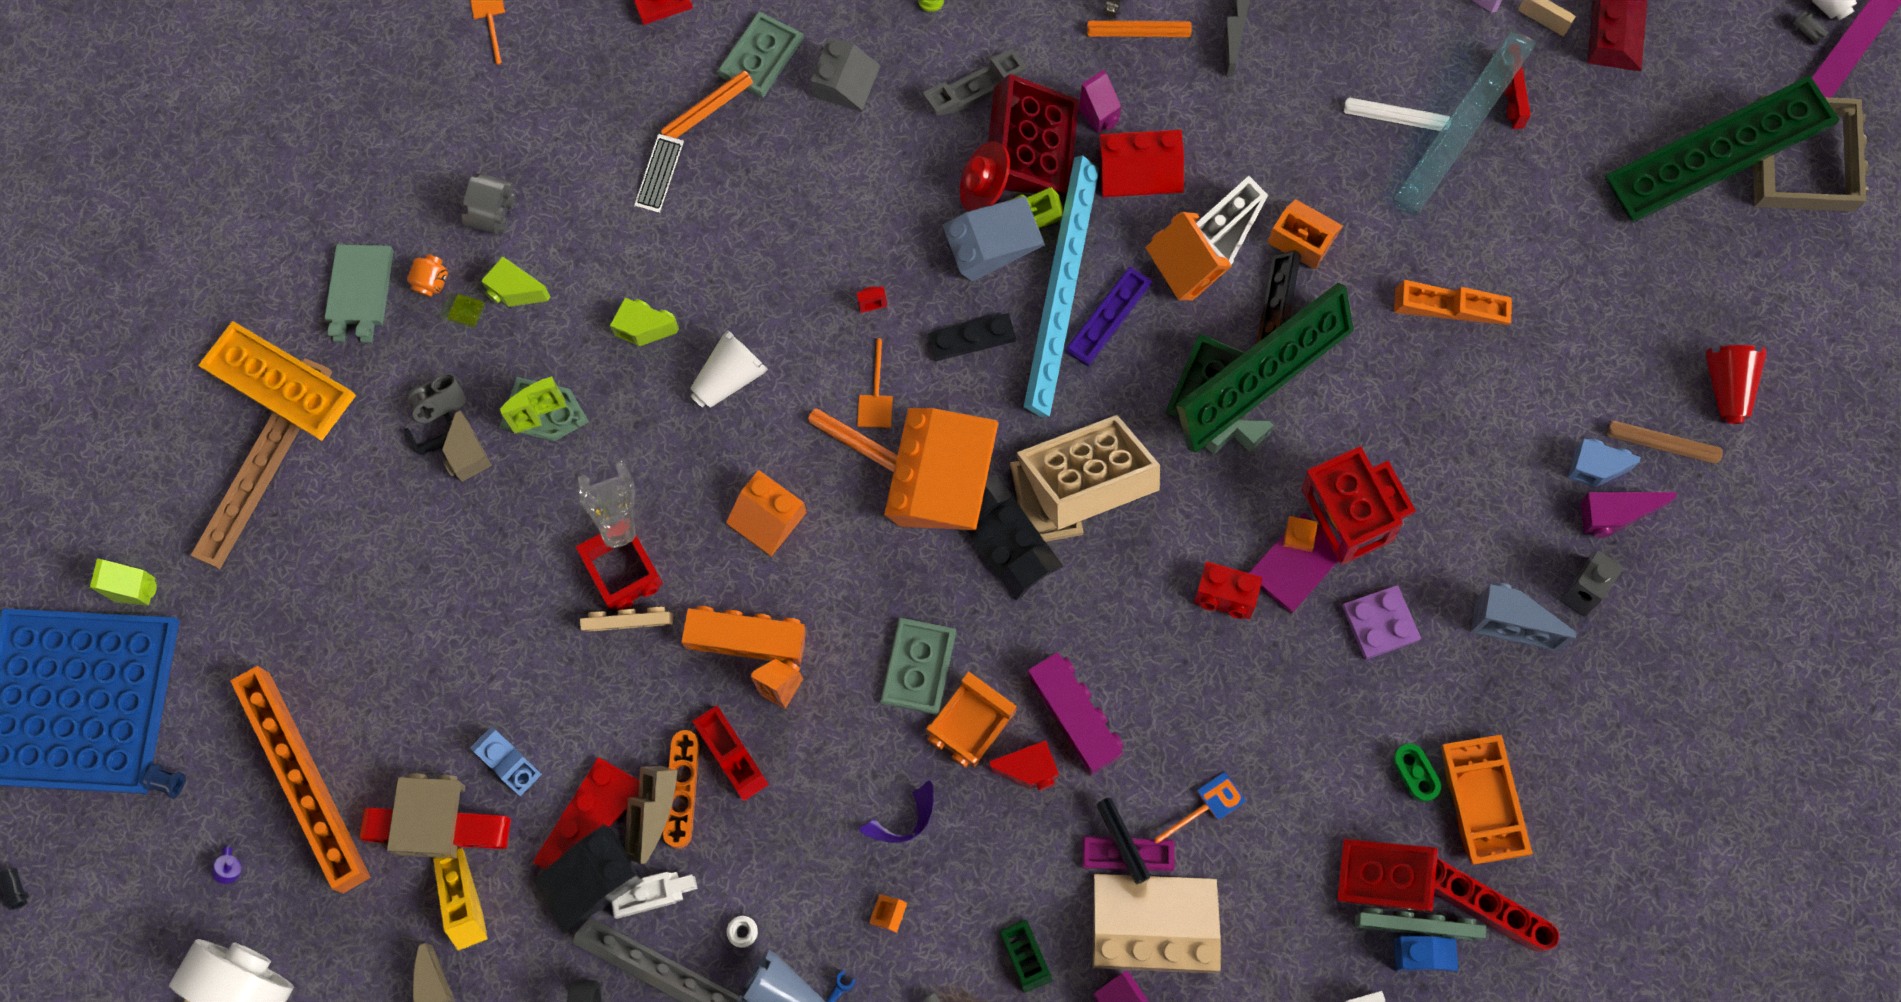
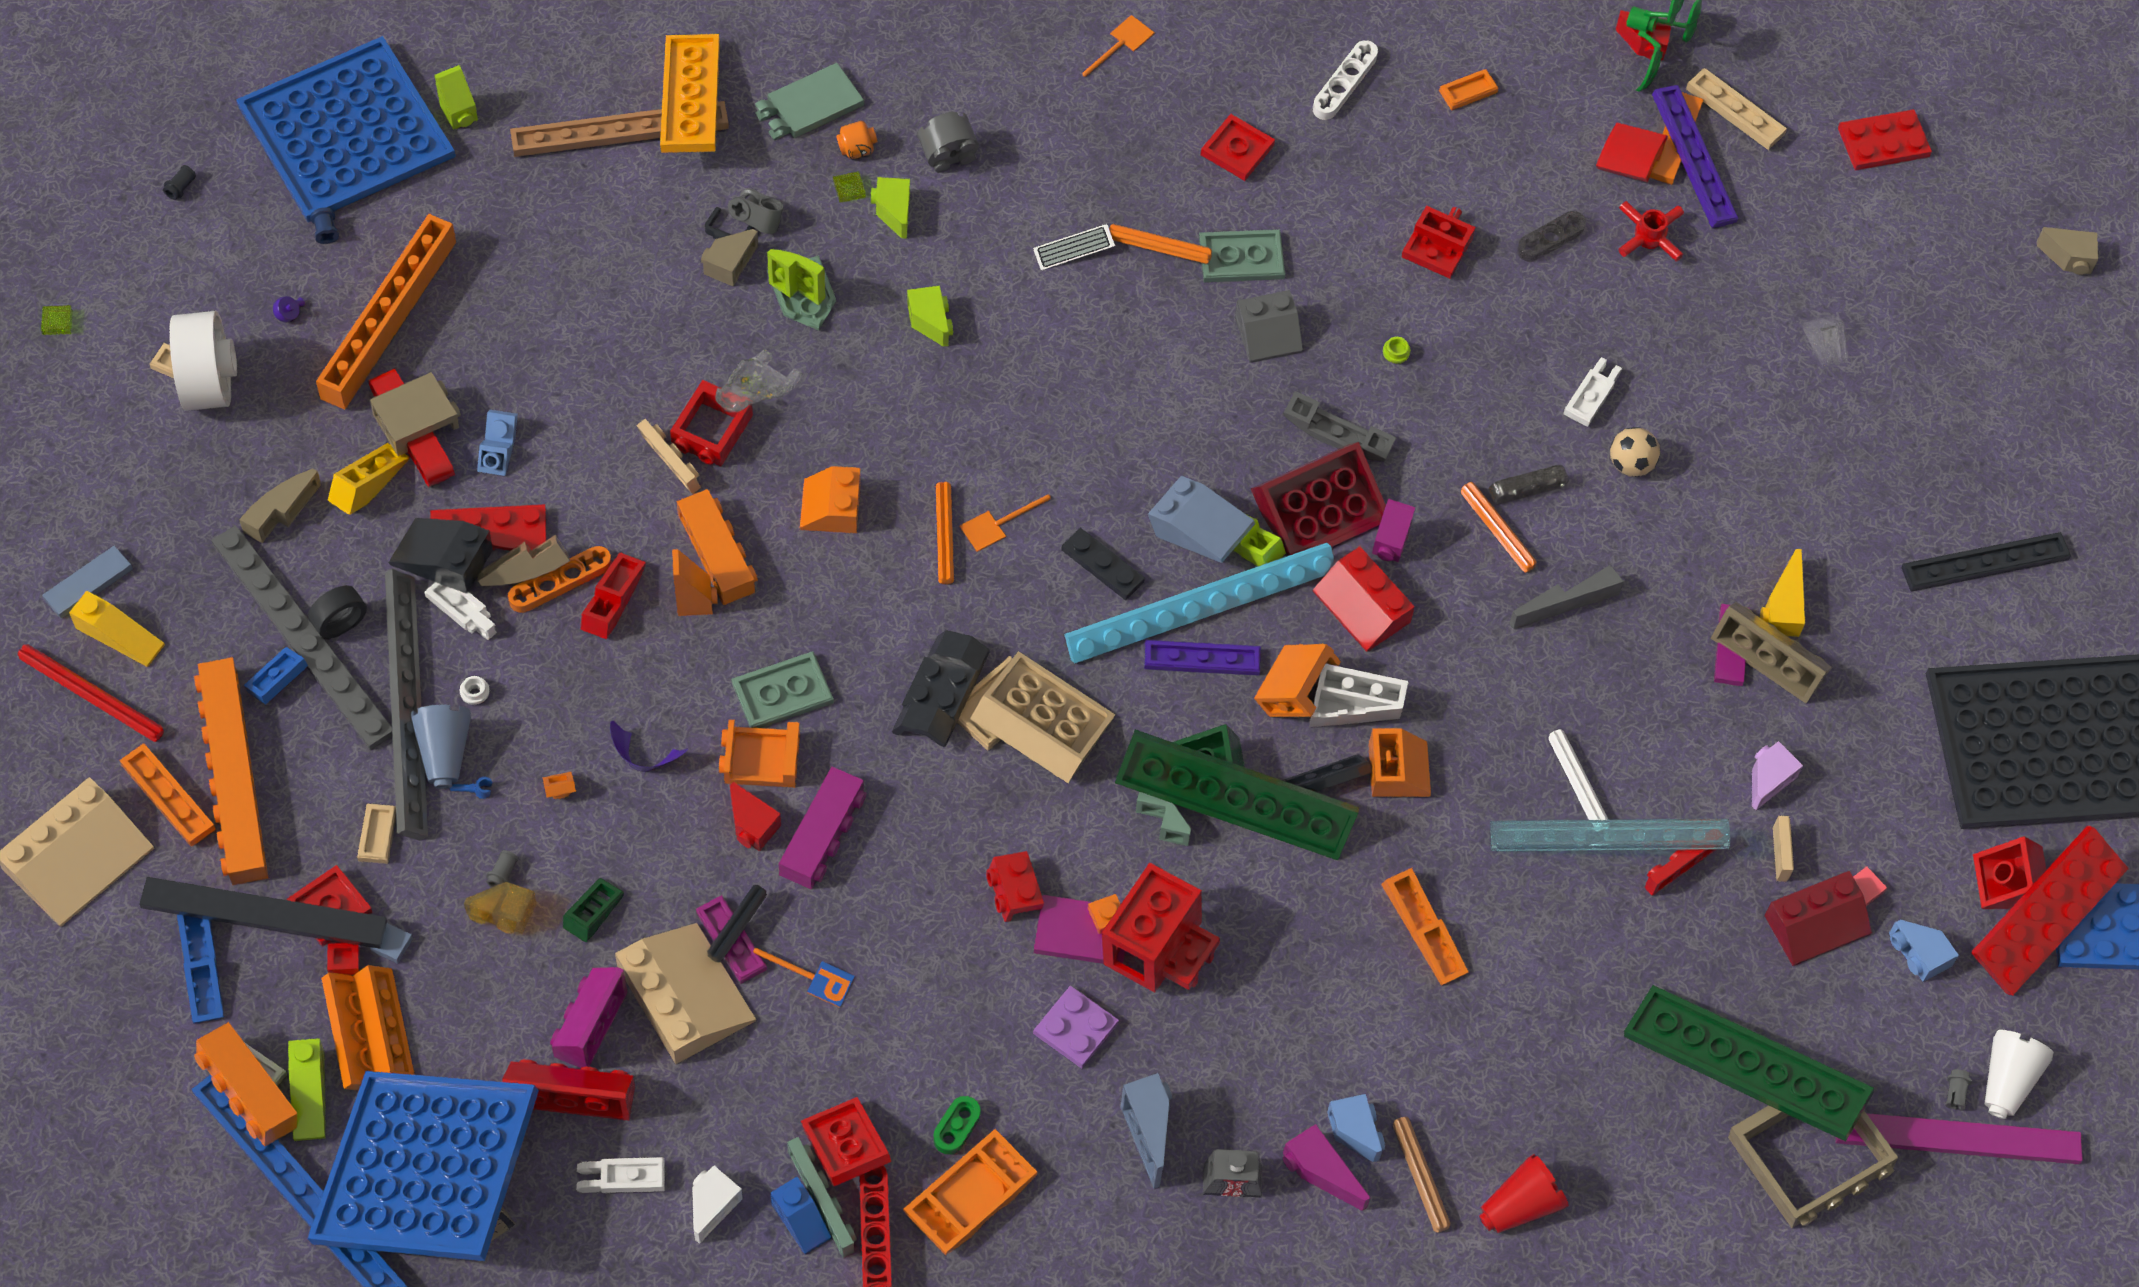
camera: 50 degrees right, 10 degrees down
(725, 371) = (933, 397): white cone -> none
(871, 299) = (1077, 466): red plate -> none
(941, 470) = (959, 600): orange slope -> none
(984, 176) = (1250, 477): red hat -> none

